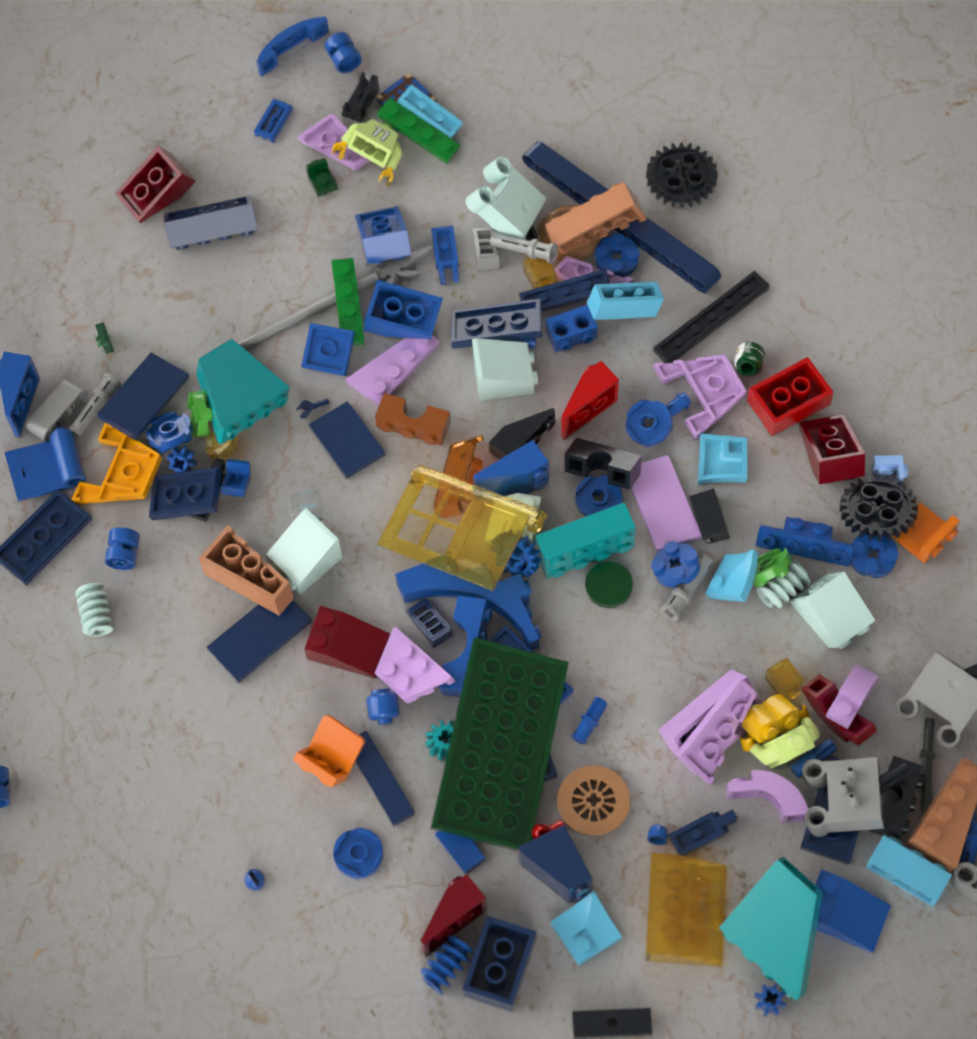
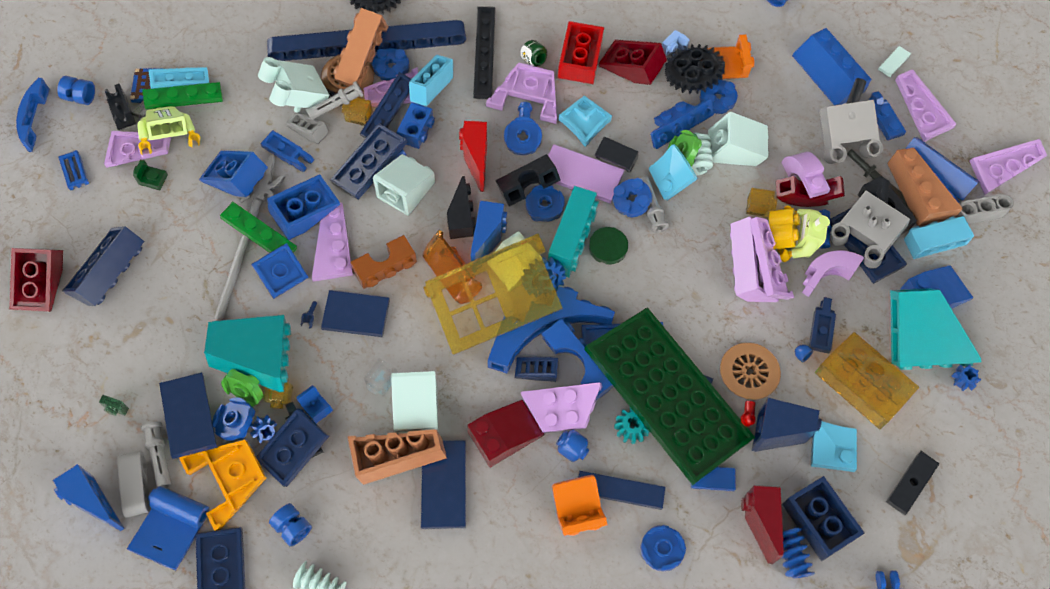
camera: 55 degrees left, 0 degrees up
(589, 720) = (693, 329): blue axle -> none

